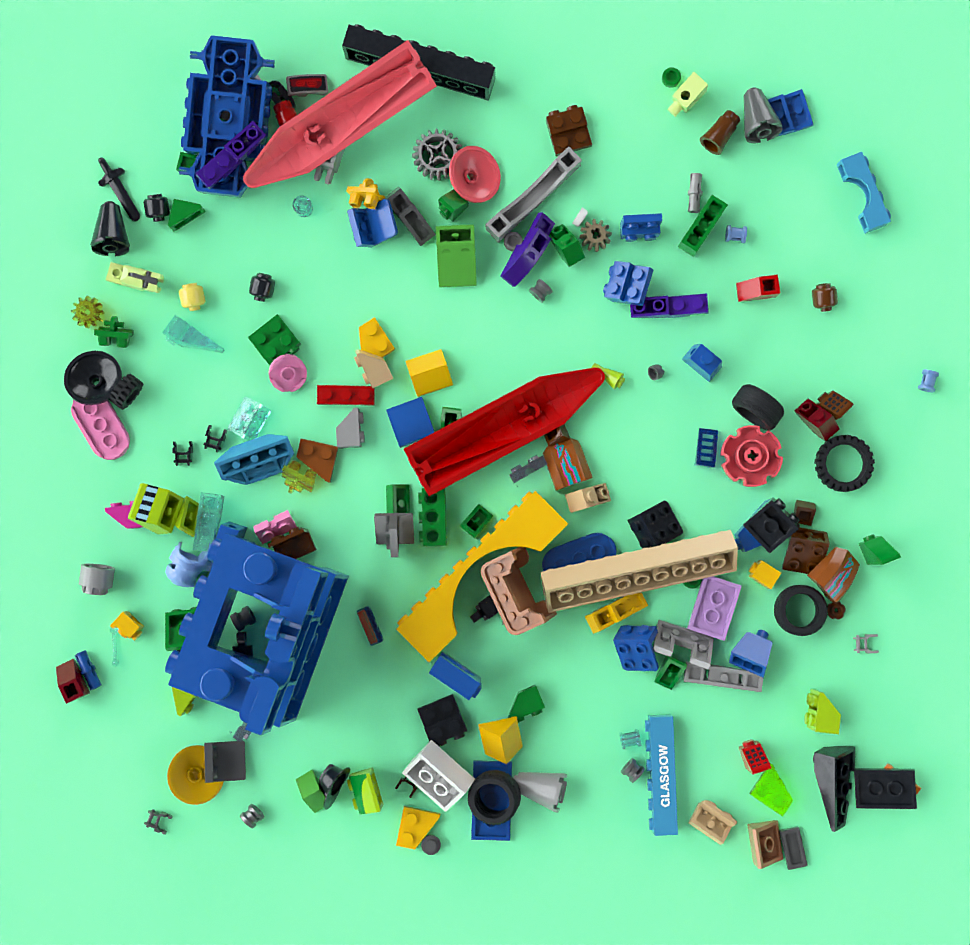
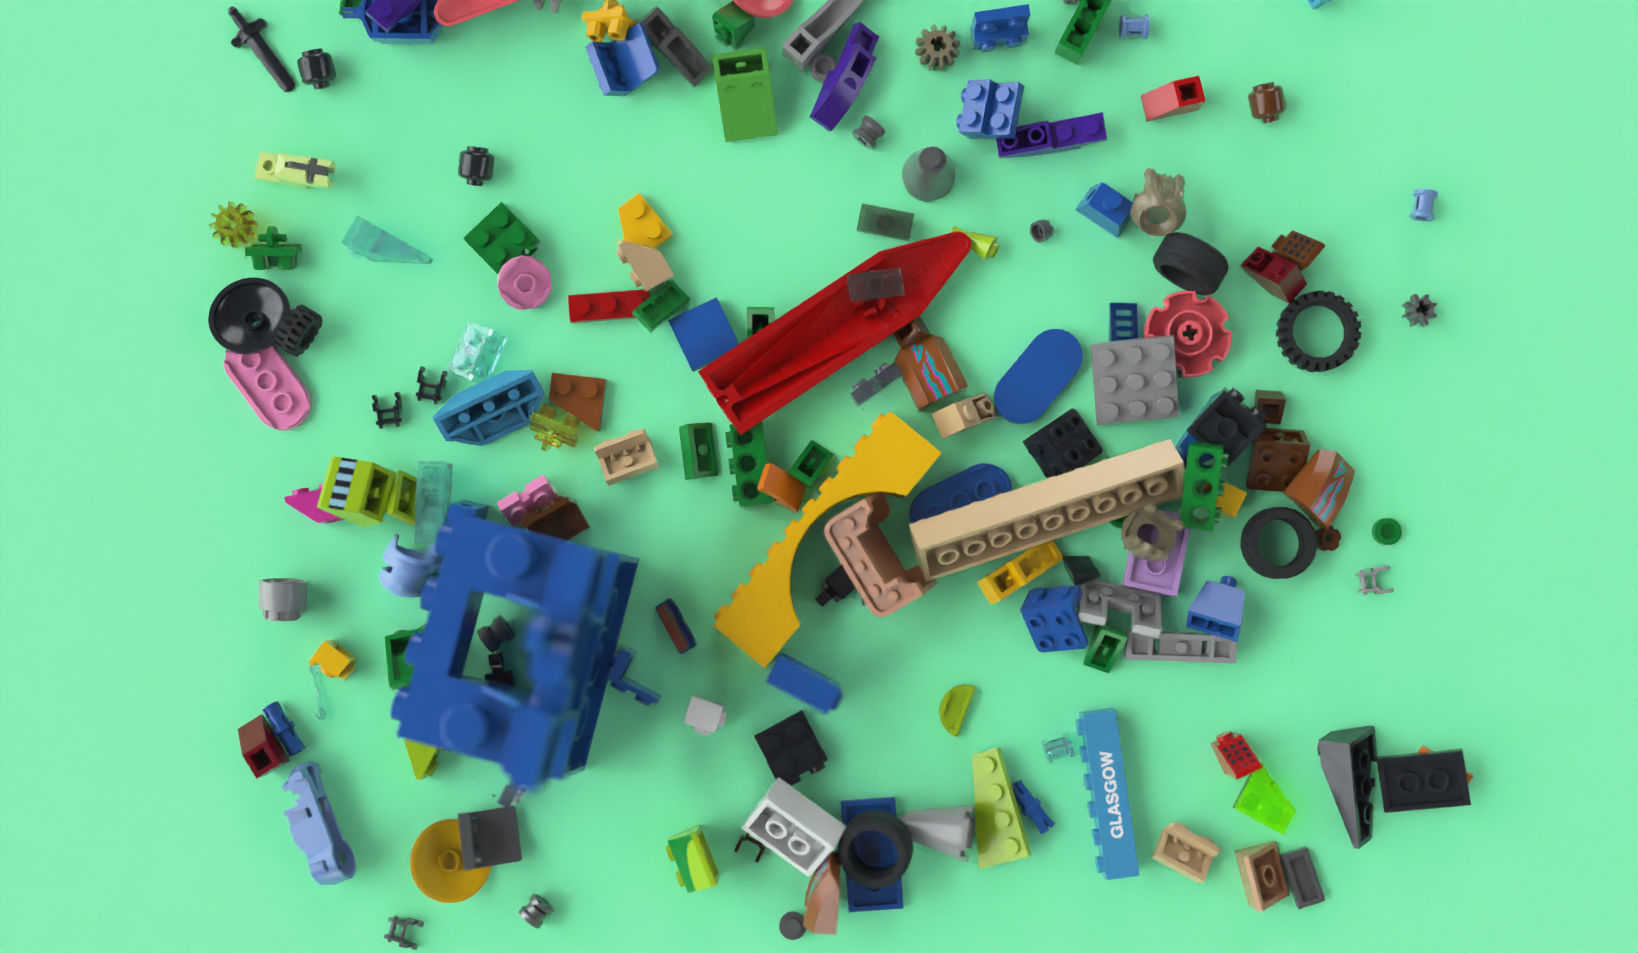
camera: 10 degrees left, 0 degrees up
(105, 744) = (317, 831): none -> medium blue piece
(110, 231) = (254, 109): black cone -> none
(183, 213) = (355, 73): green slope -> none
(192, 296) = (378, 188): light yellow head -> none
(301, 202) = (519, 41): clear light blue wheel -> none
(310, 791) = (618, 867): bright green slope -> none
(326, 661) = (620, 662): none -> blue bracket
(331, 783) = (644, 851): black piece -> none
(347, 503) = (626, 456): none -> tan bracket
(349, 430) = (619, 354): light grey slope -> none
(382, 399) = (661, 306): none -> green plate
(384, 690) = (705, 715): none -> white brick
(394, 530) = (696, 487): dark grey bracket -> none
(415, 826) = (767, 902): yellow wing -> none
(429, 373) = (724, 263): yellow slope -> none
(454, 536) = (782, 487): none -> orange slope
(454, 827) = (823, 897): none -> slope
(501, 739) = (877, 766): yellow slope -> none
(526, 702) = (906, 712): green slope -> none
(534, 400) = (875, 285): none -> clear smoke plate
(546, 355) = (885, 222): none -> clear smoke plate
(560, 702) = (954, 707): none -> lime tile
(566, 245) = (898, 65): green slope -> none
(580, 217) = (913, 24): white tile -> none
(580, 324) = (928, 174): none -> dark grey cone
(582, 779) = (997, 815): none -> lime wing
(606, 778) = (1031, 807): none -> blue pin
(632, 770) = (1066, 791): flat silver wheel -> none
(642, 475) = (1038, 376): none -> blue tile
(658, 614) = (1080, 569): none -> black slope
(710, 484) = (1134, 379): none -> light grey plate
(722, 595) = (1166, 529): none -> dark tan piece
(740, 364) = (1161, 205): none -> dark tan piece
(742, 572) = (1197, 472): none -> green brick
(821, 713) = (1323, 684): lime slope -> none
(877, 550) = (1379, 448): green slope -> none
(878, 609) = (1386, 531): none -> green tile
(911, 455) = (1423, 303): none -> dark grey gear

